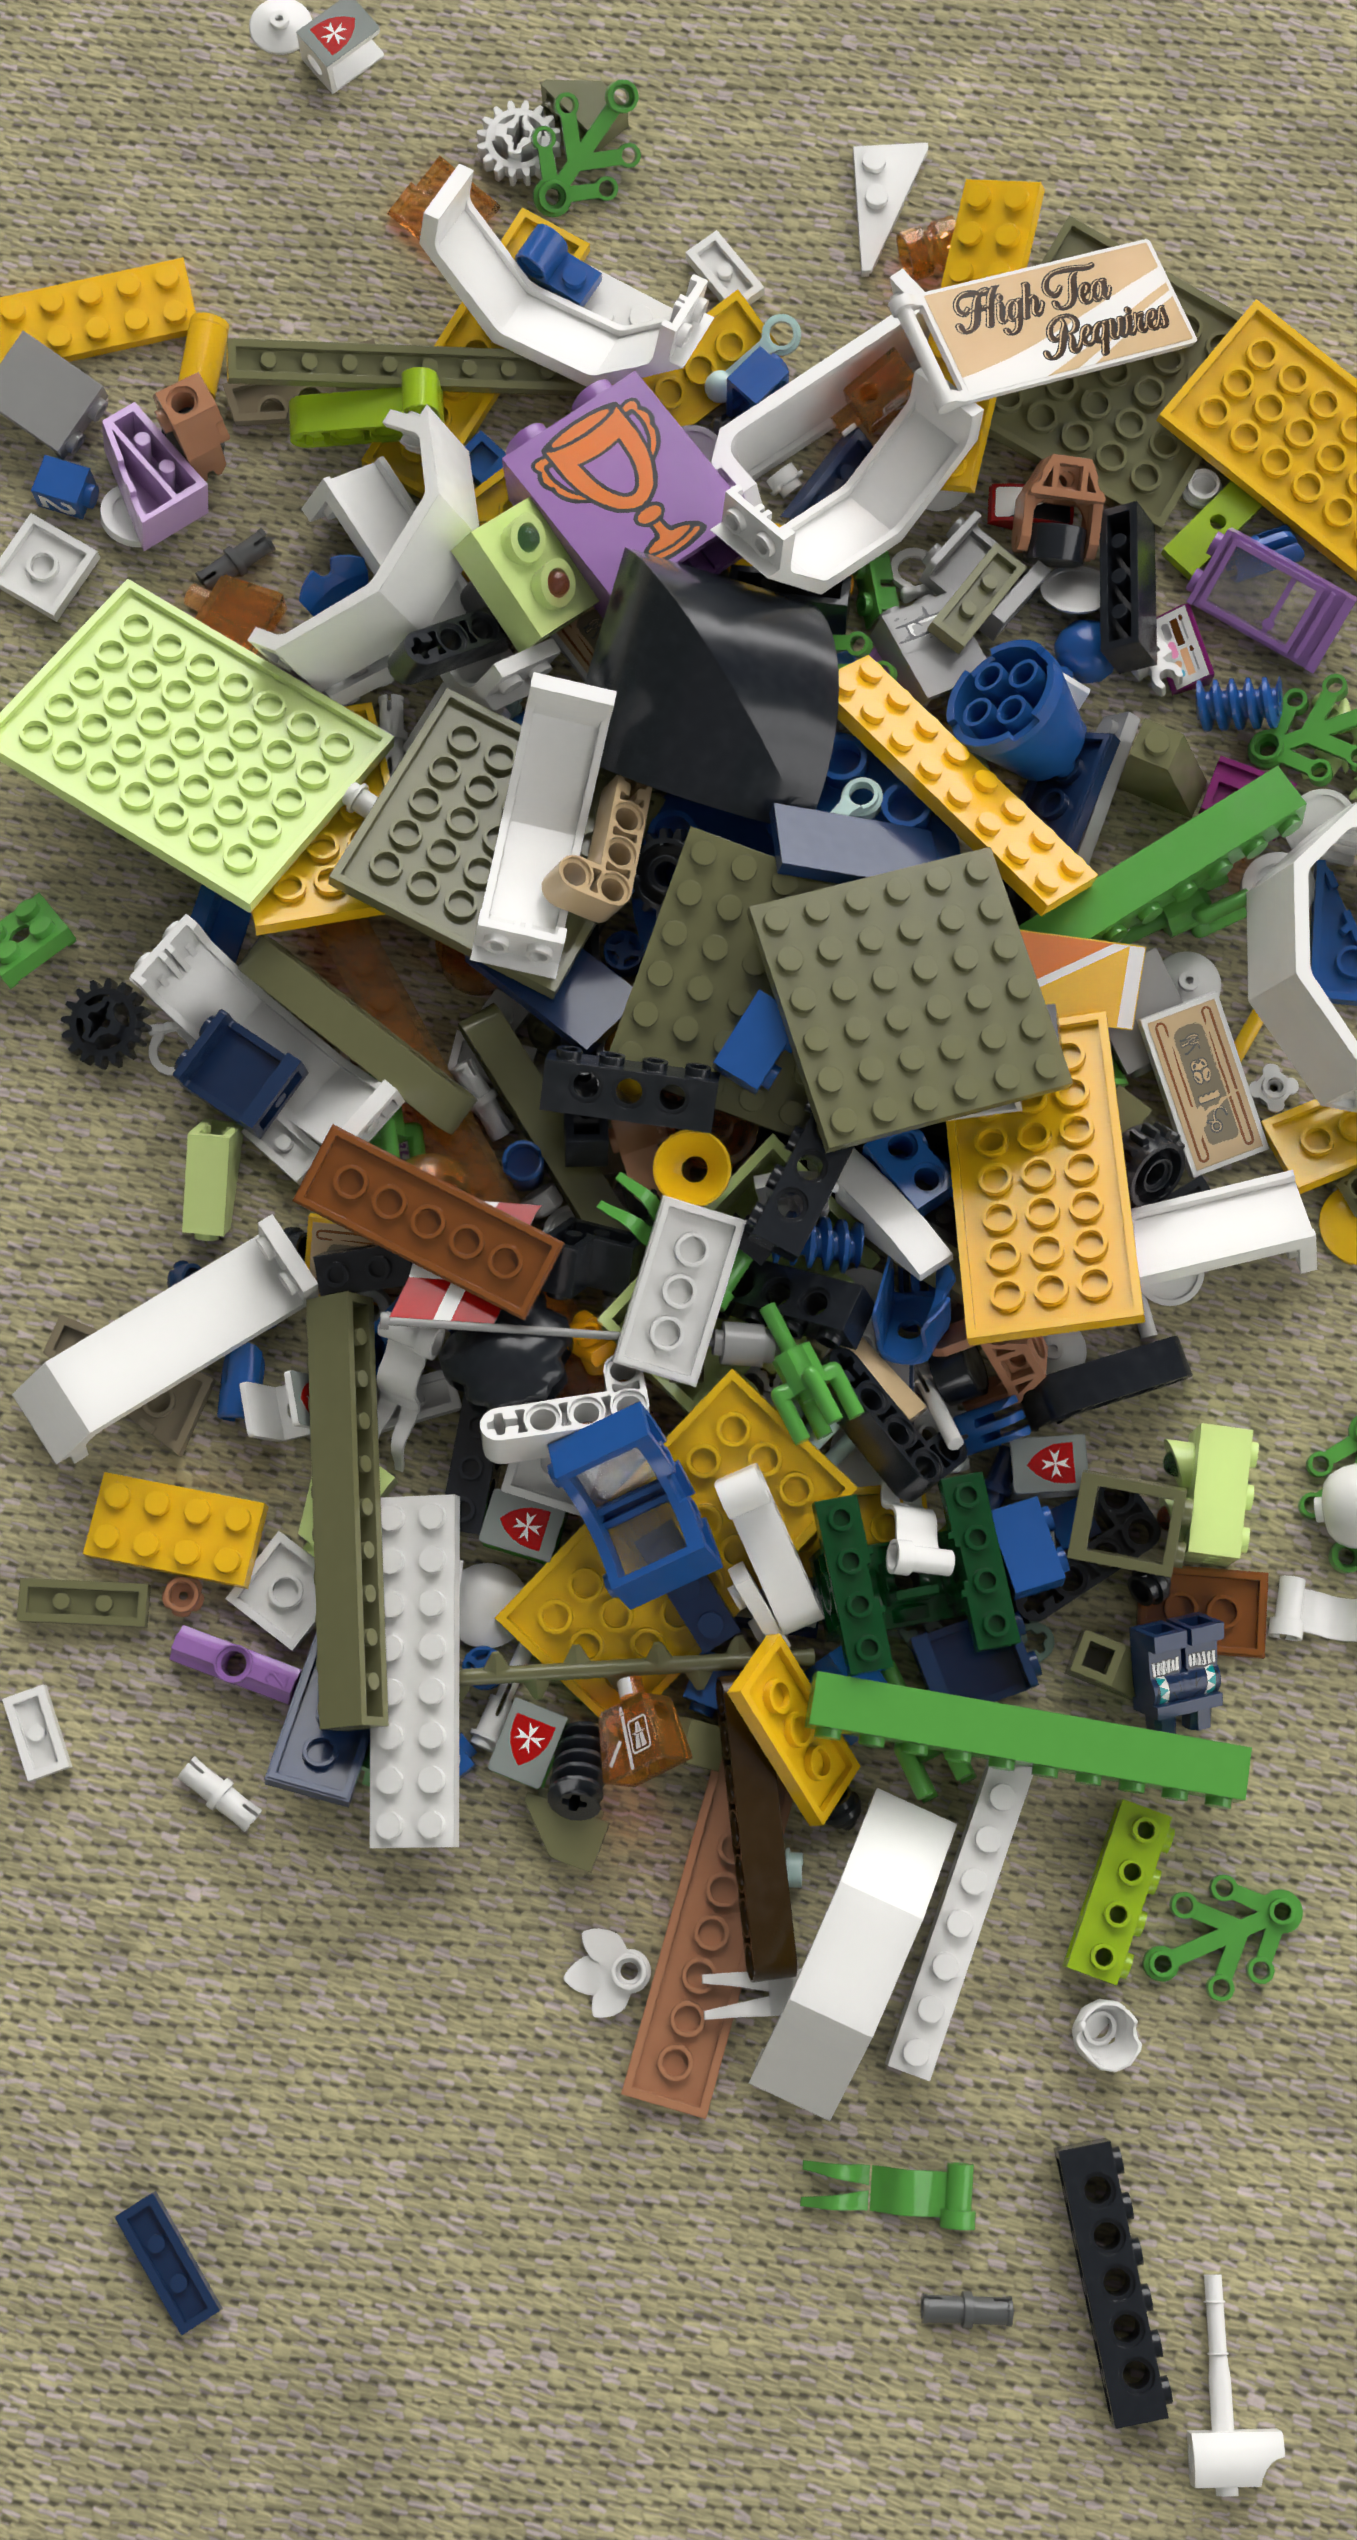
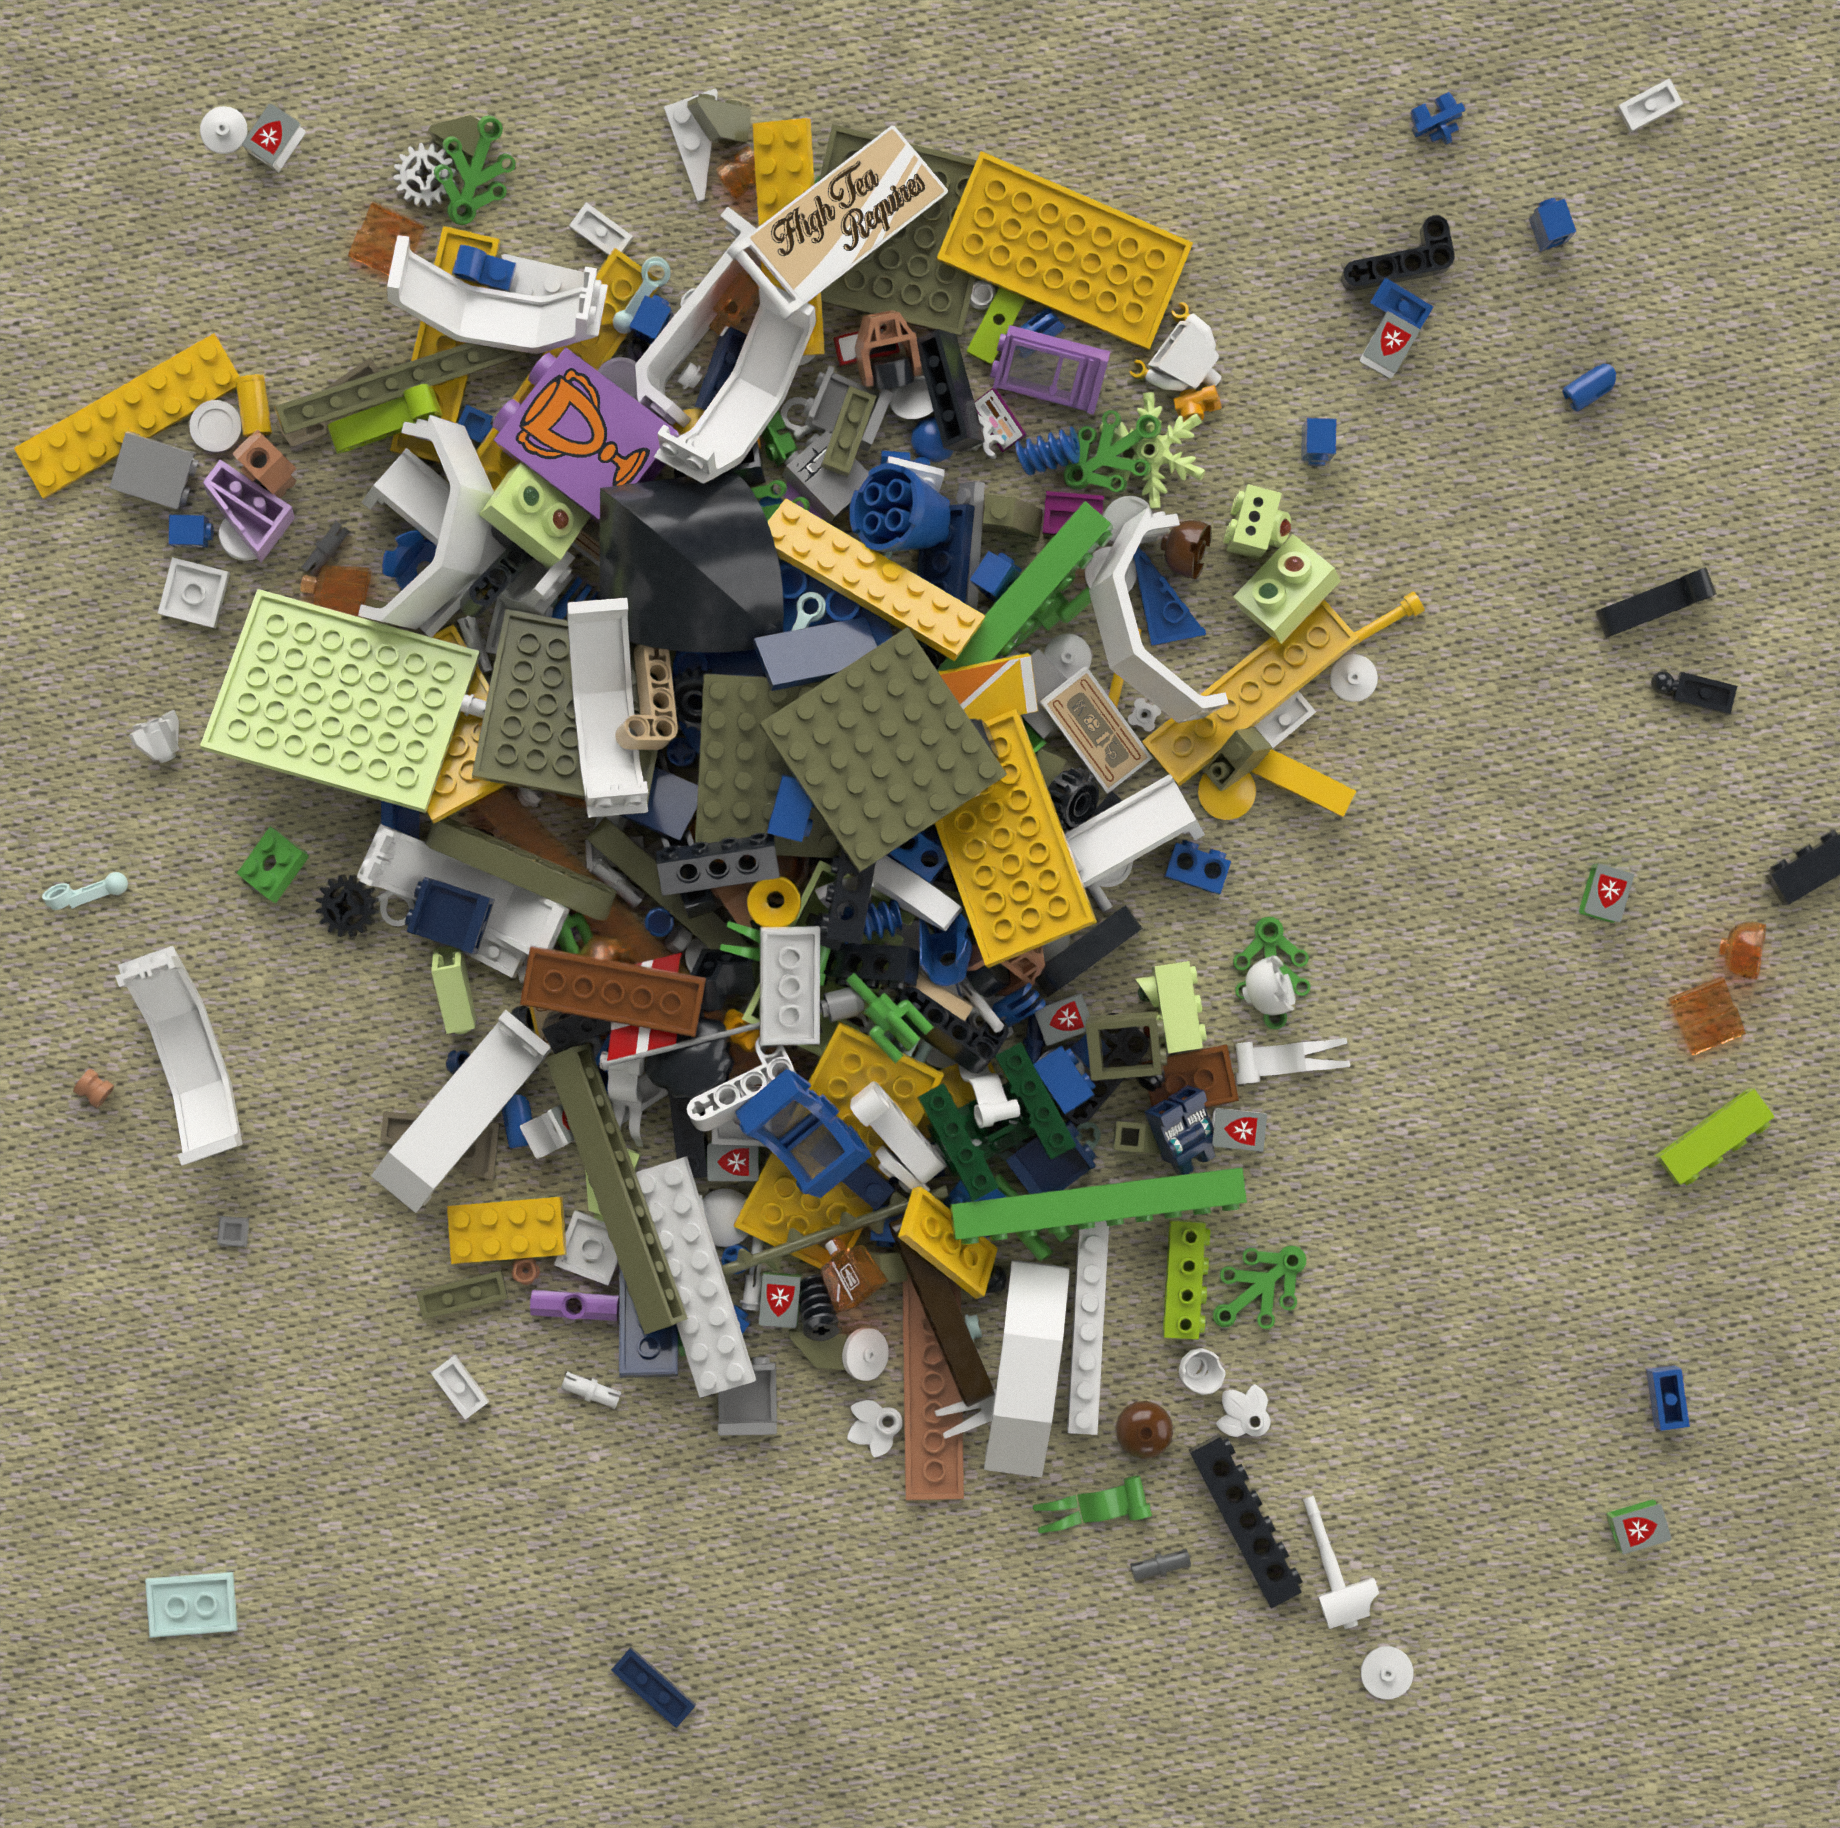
camera: 15 degrees left, 10 degrees up
(143, 369) = (215, 426): none -> white piece
(401, 949) = (529, 796): none -> white plate
(441, 1883) = (753, 1406): none -> light grey panel
(626, 1860) = (865, 1354): none -> white piece
(922, 176) = (721, 121): none -> olive slope
(998, 2097) = (1144, 1429): none -> reddish brown cylinder
(1120, 834) = (995, 575): none -> blue brick
(1149, 2111) = (1240, 1411): none -> white plate
(1257, 1697) = (1239, 1129): none -> light grey piece
(1287, 1324) = (1195, 875): none -> blue brick

